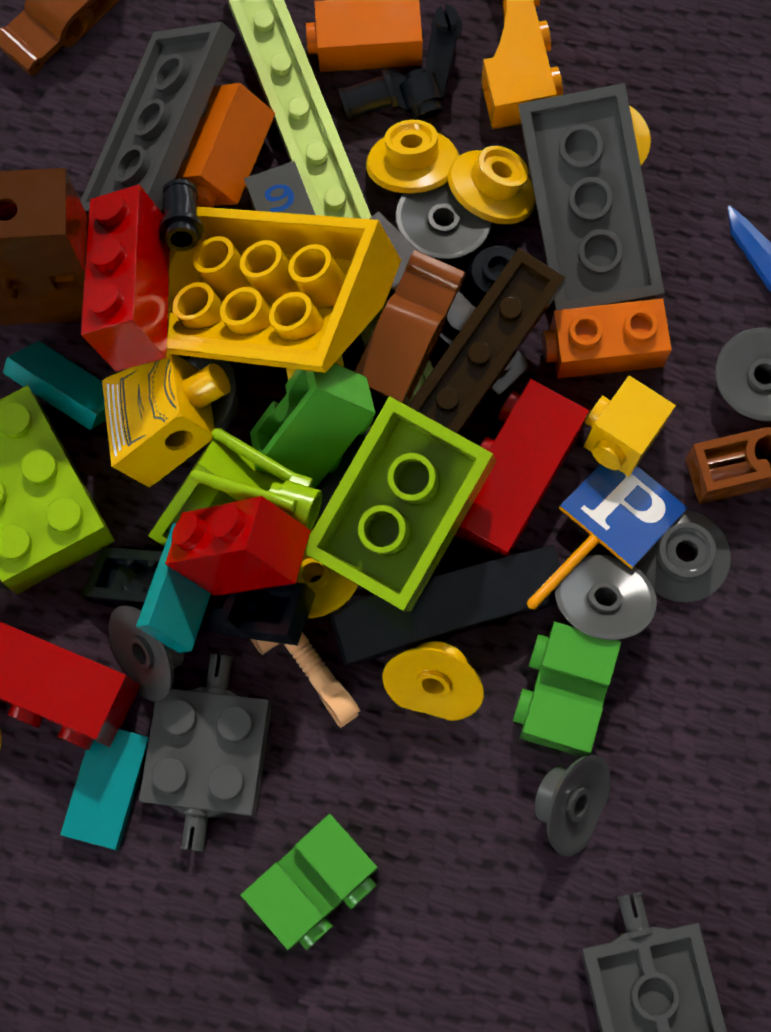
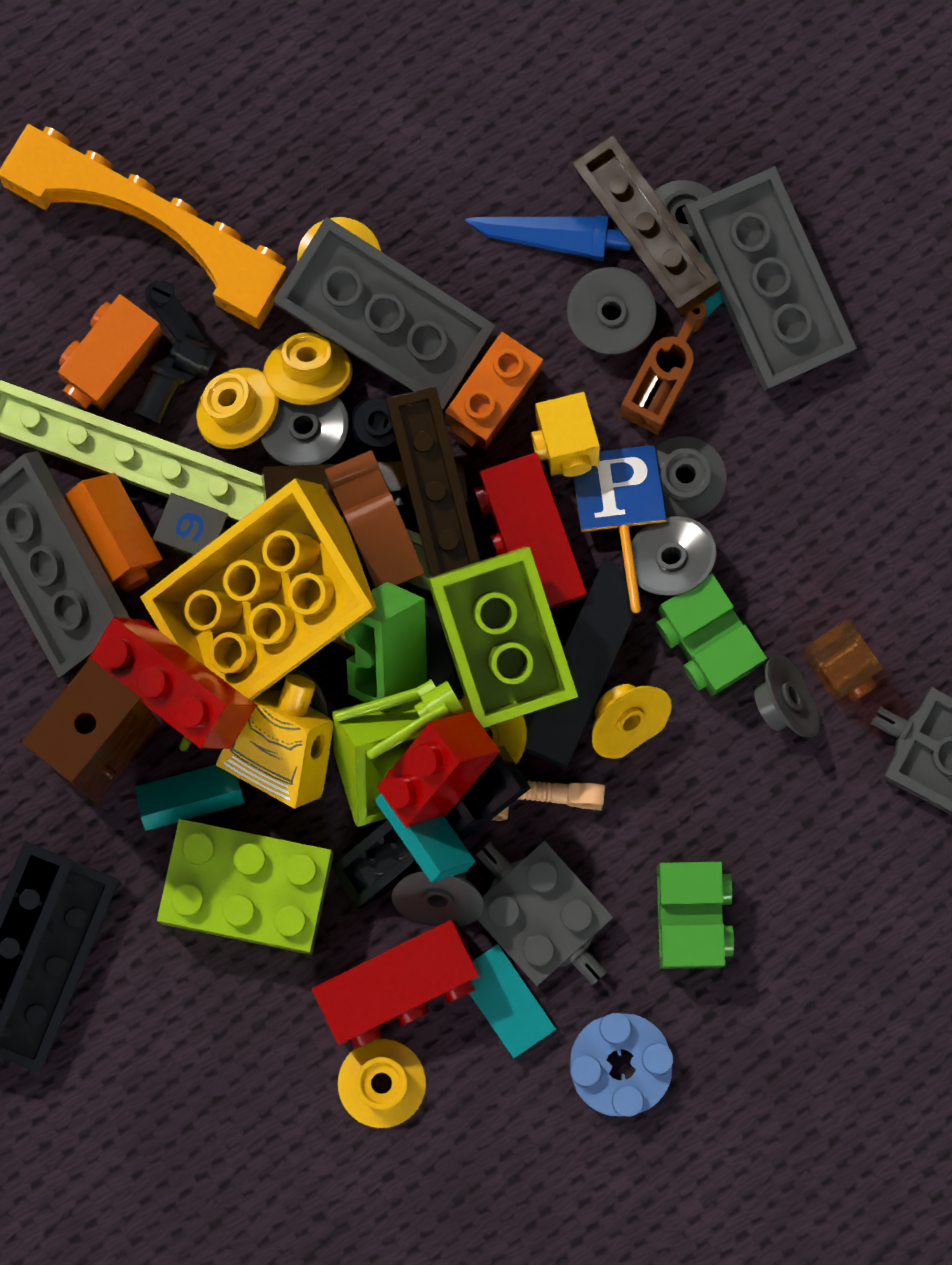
camera: 55 degrees left, 5 degrees up
(156, 957) = (650, 1060): none -> medium blue plate
(180, 225) = (161, 613): black pin -> none
(649, 825) = (843, 662): none -> clear orange brick

